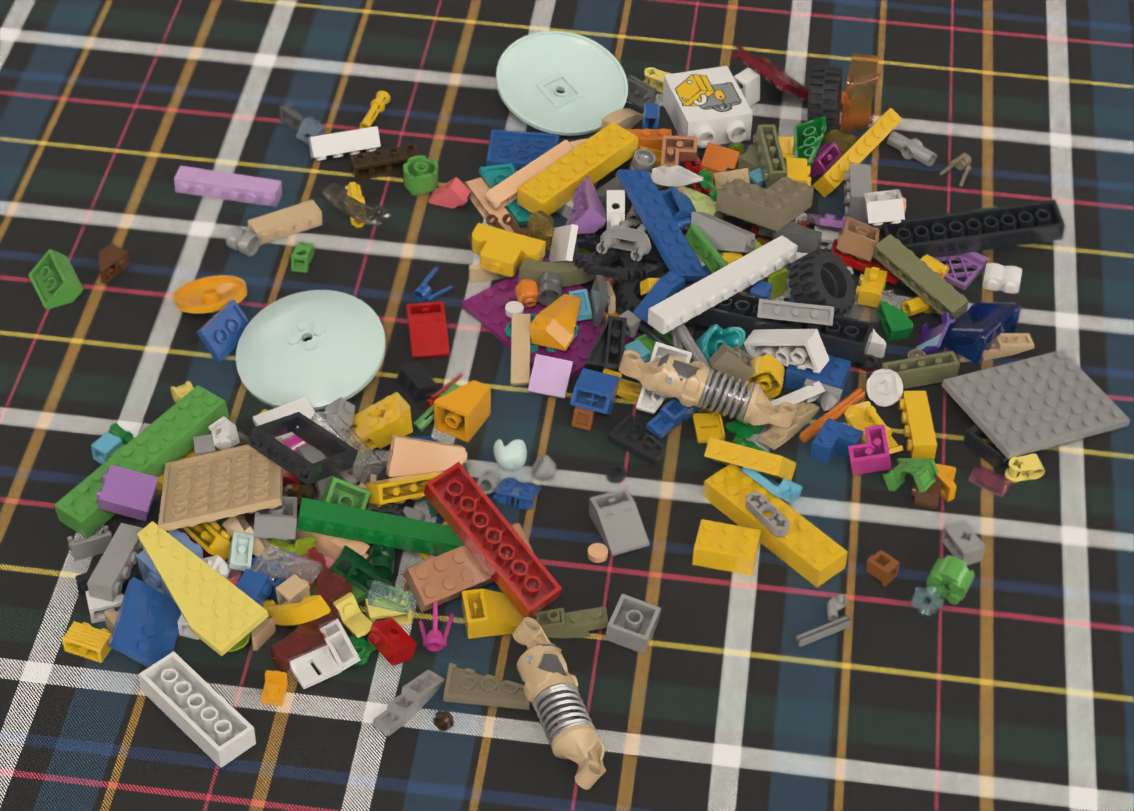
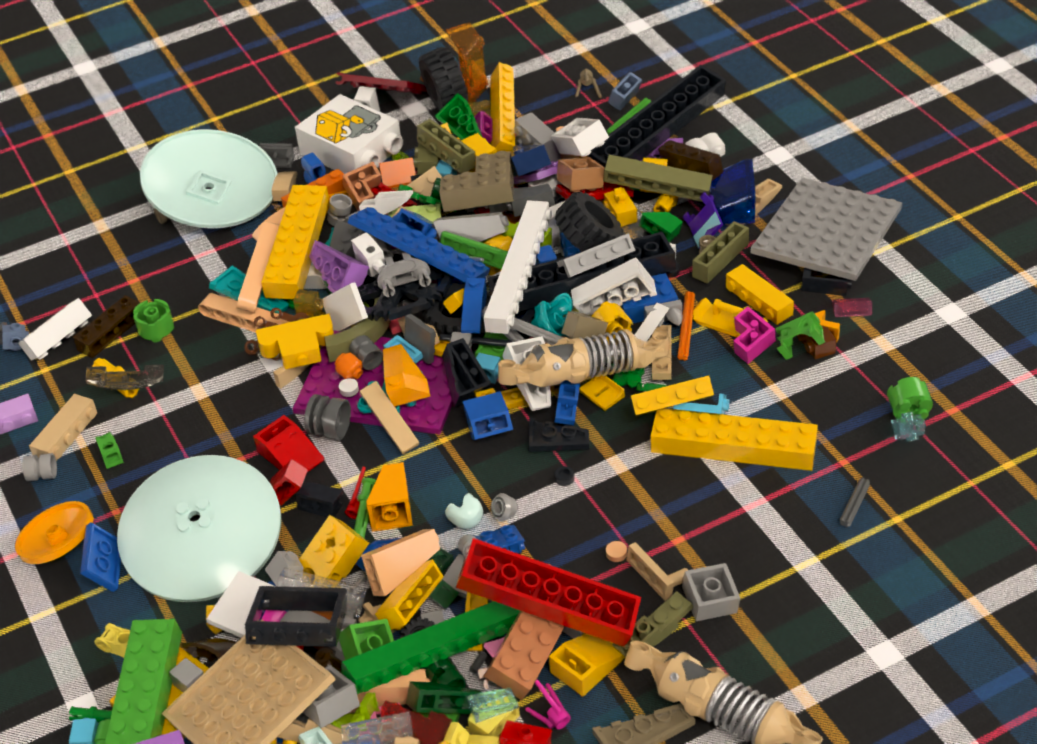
camera: 30 degrees left, 0 degrees up
(224, 434) = (198, 651): white brick -> none
(377, 106) = (54, 283): yellow pin -> none
(400, 353) = (288, 480): none -> red brick
(423, 291) = (250, 419): blue plant -> none
(450, 194) = (194, 322): coral slope -> none
(476, 322) = (327, 416): none -> dark grey wheel
(518, 147) = (219, 252): blue plate -> none
(550, 376) = (435, 425): lavender tile -> none
(583, 418) = (494, 445): dark orange tile -> none
(605, 595) = (652, 573): none -> tan piece
(618, 521) = (611, 513): light grey slope -> none
(656, 79) = (283, 135): light yellow piece -> none
(726, 547) = (717, 480): yellow brick -> none
(766, 506) = (746, 430): light grey beam -> none
(824, 201) = (529, 158): none -> dark blue wedge
(833, 439) = (712, 342): blue brick -> none
(835, 605) = (842, 474): light grey arm -> none
(883, 567) = (848, 421): dark orange brick -> none
(884, 387) = (709, 279): white tile -> none
(911, 148) = (538, 87): light grey piece -> none
(963, 542) = (885, 366): light grey brick -> none
(969, 279) = (691, 158): none -> dark brown brick
(981, 190) = (625, 91): none -> sand blue brick
(1024, 468) = (869, 282): light yellow piece -> none

